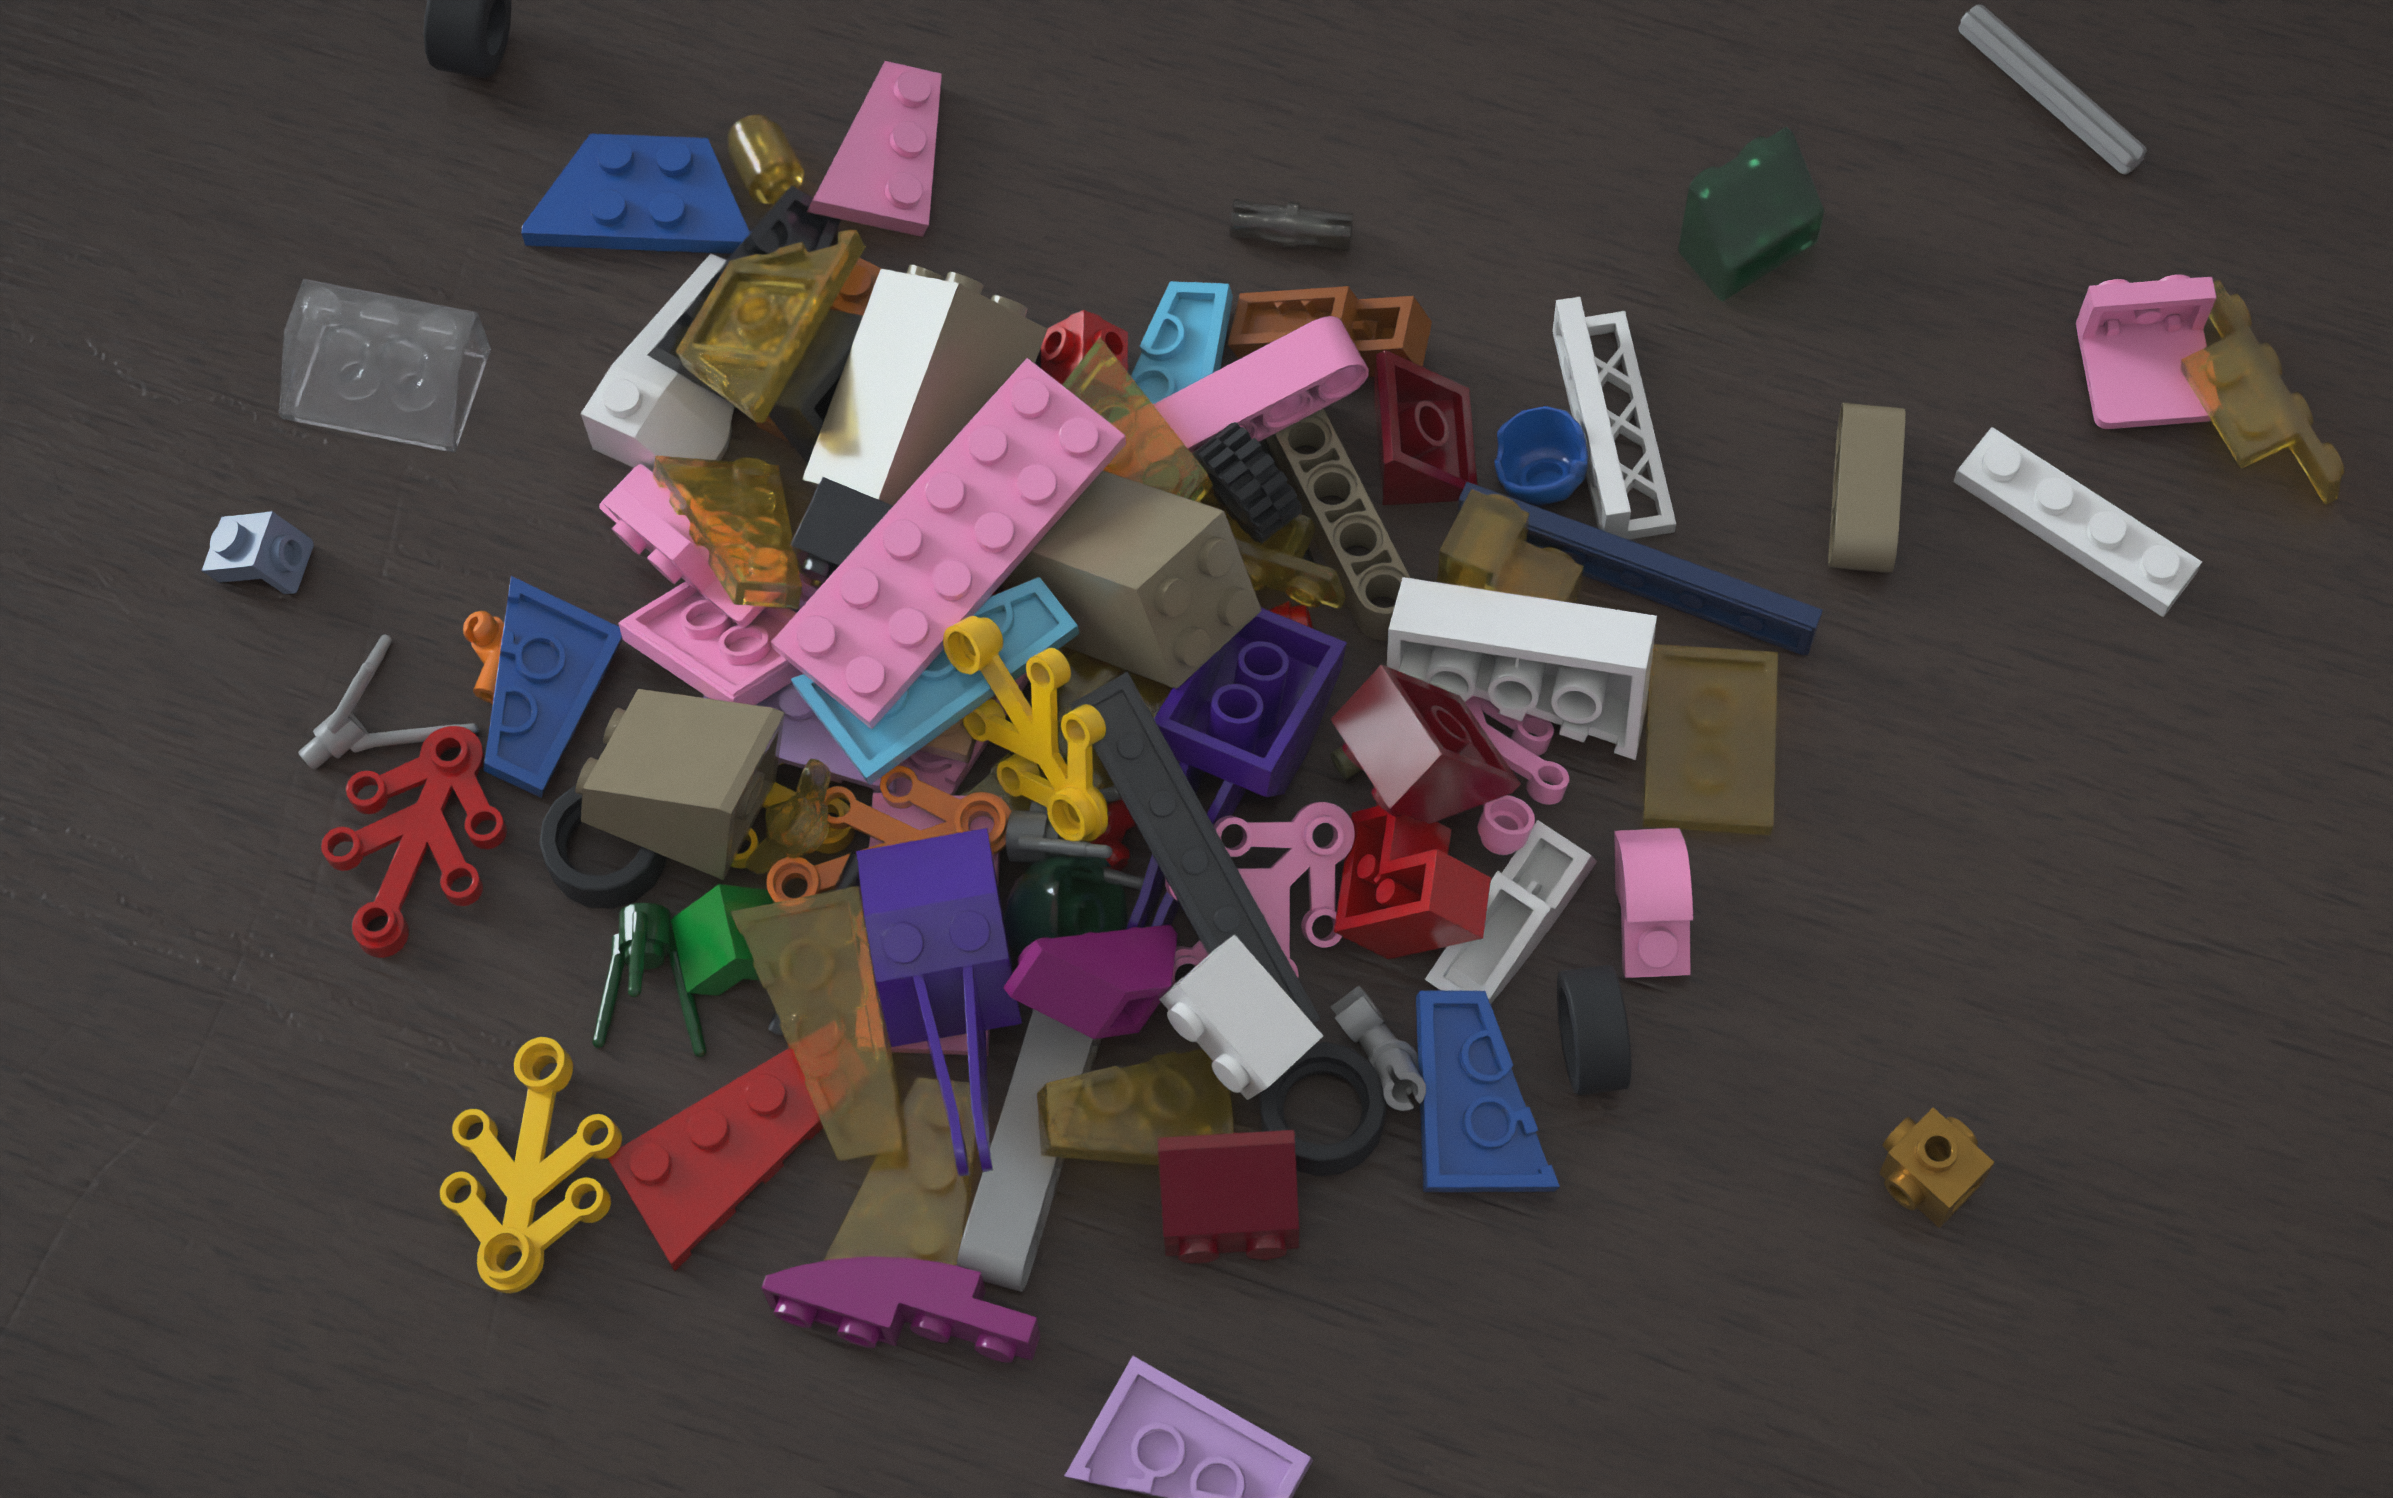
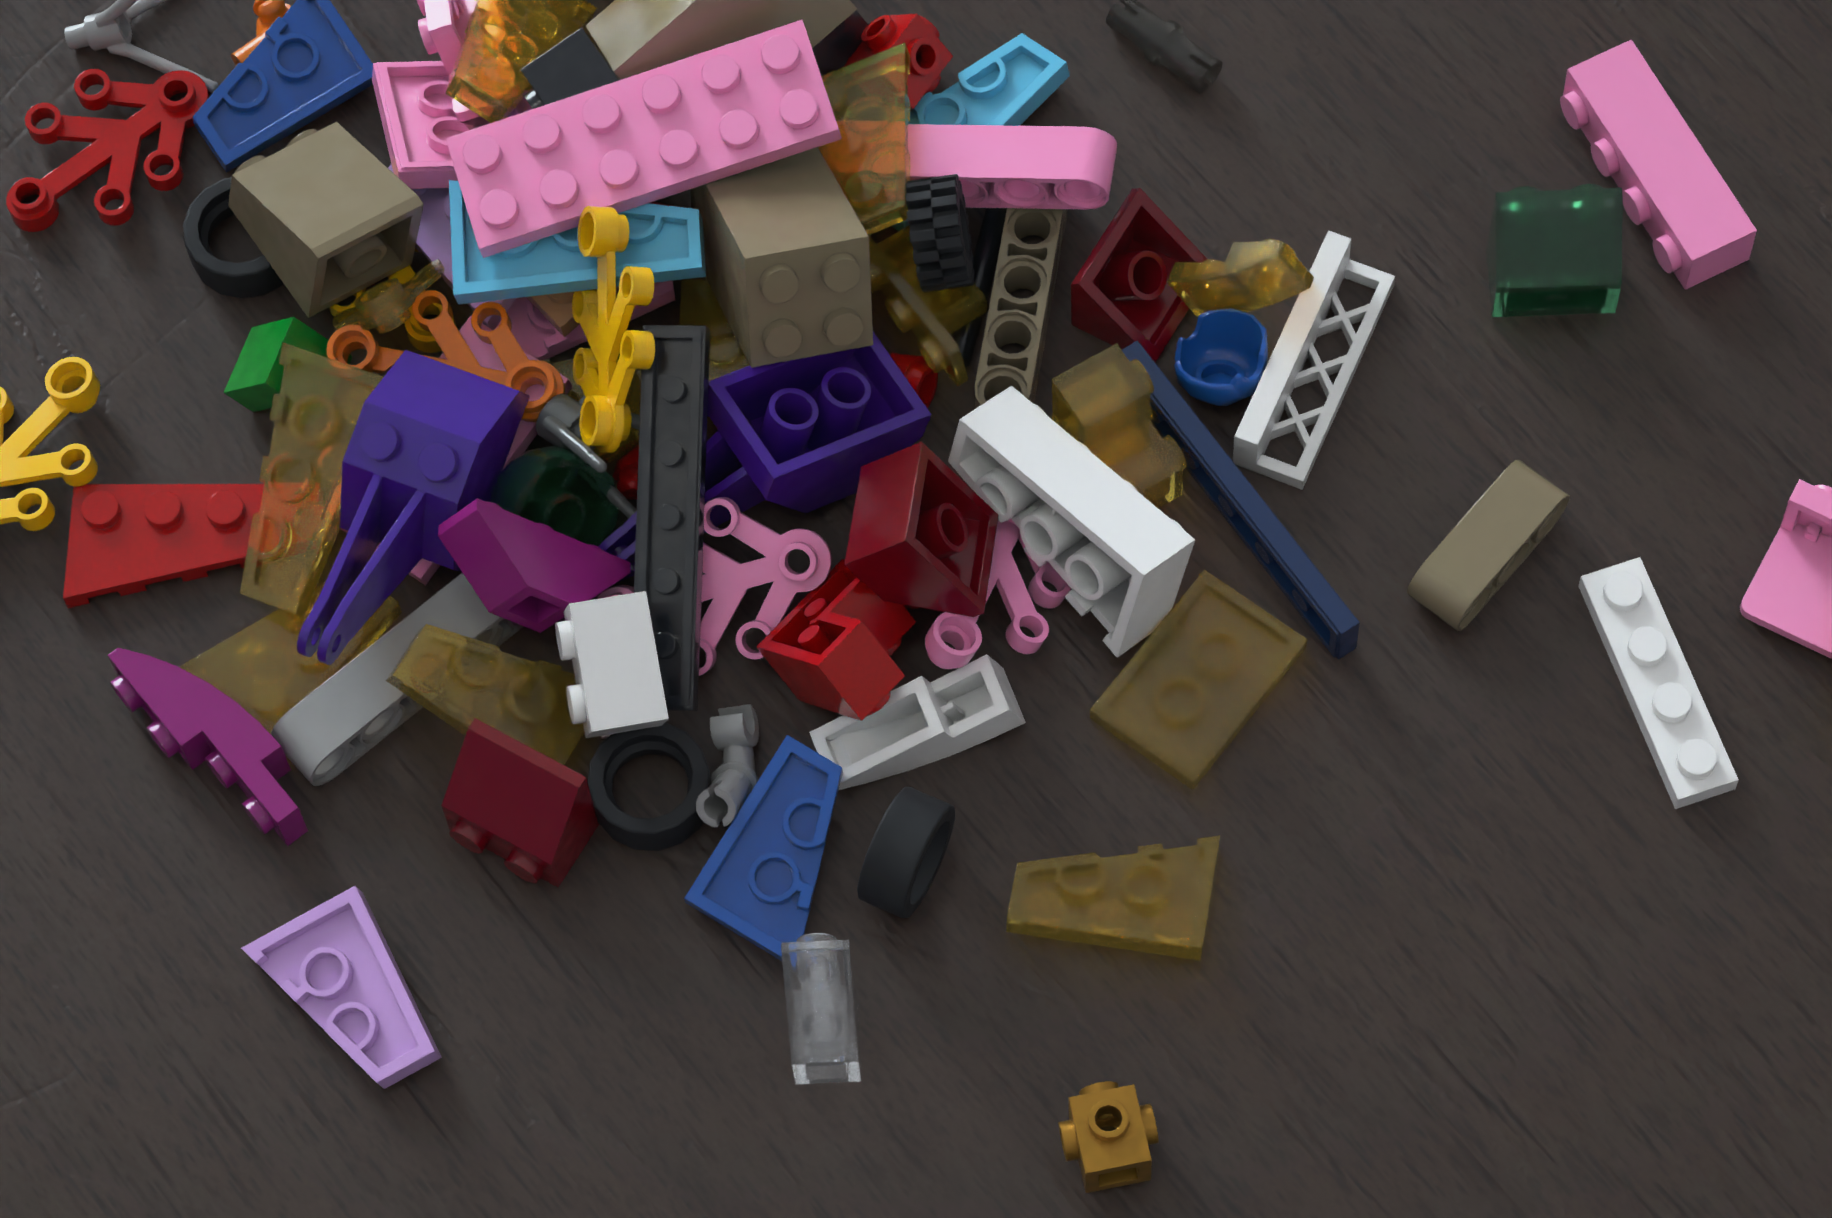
camera: 35 degrees right, 0 degrees up
(642, 944) = (217, 333): dark green plant -> none
(1372, 323) = (1145, 158): dark orange slope -> none
(1525, 375) = (1248, 280): none -> clear yellow slope
(1631, 1208) = (822, 1009): none -> clear slope
(1654, 901) = (1037, 777): bright pink brick -> none
(1759, 91) = (1658, 165): none -> bright pink brick
(1790, 961) = (1128, 902): none -> clear yellow wing

